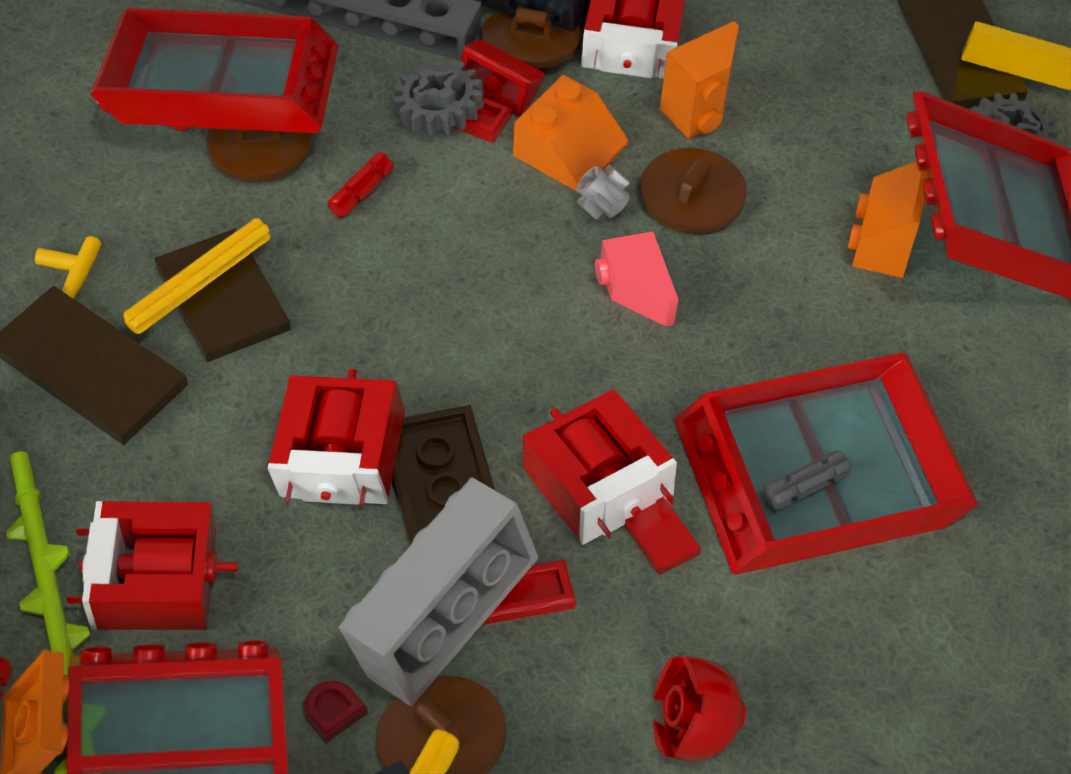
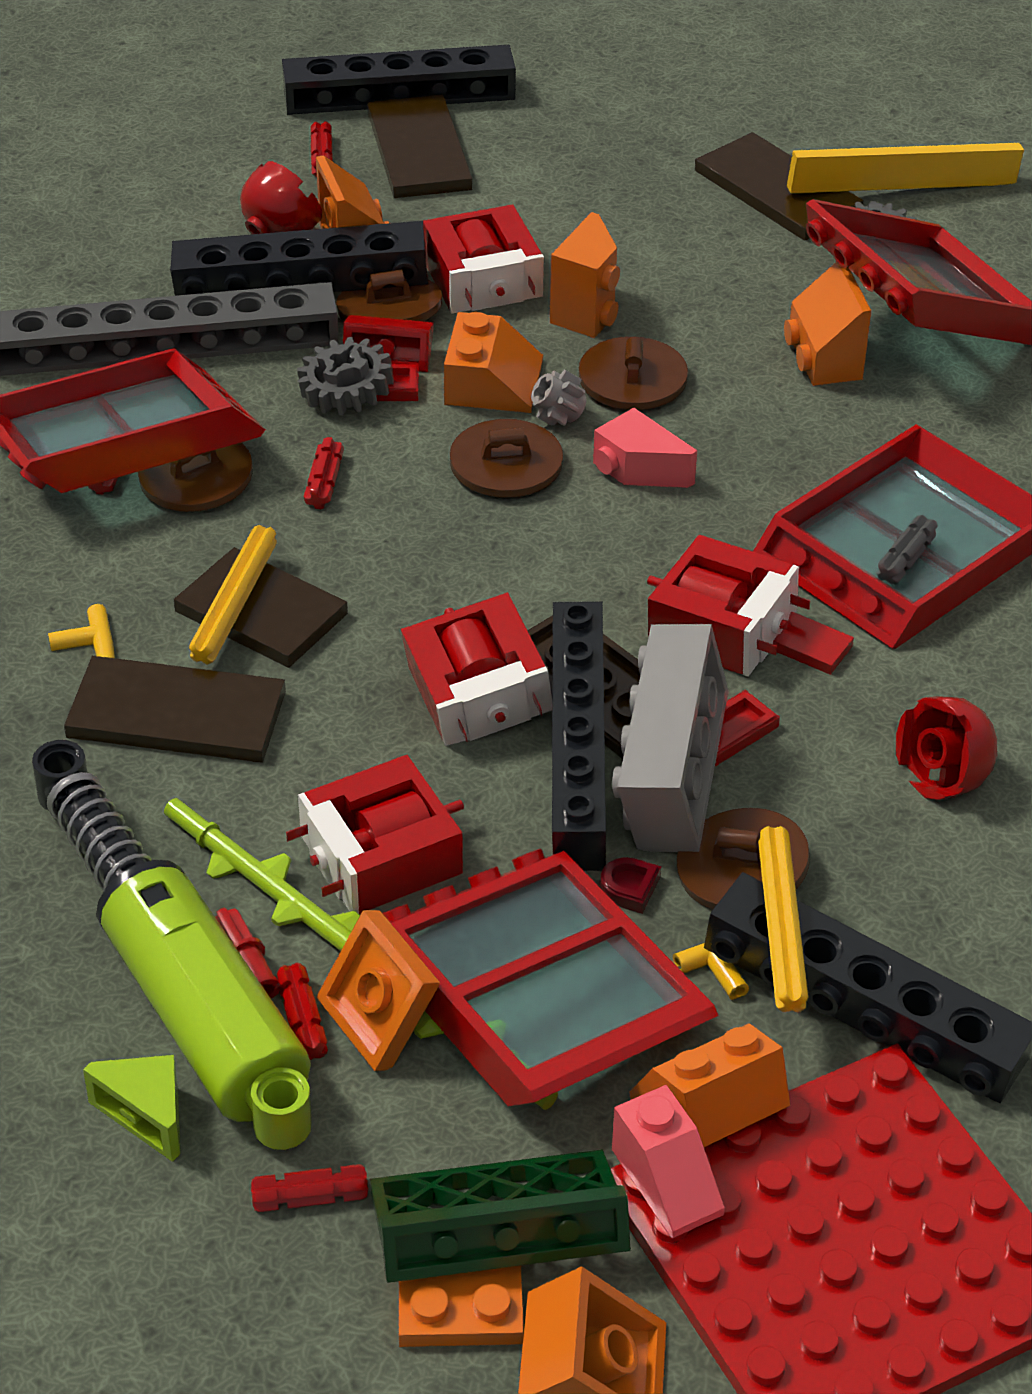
camera: 25 degrees left, 10 degrees down
(376, 538) = (578, 734): none -> black brick
(523, 232) = (506, 458): none -> reddish brown shield

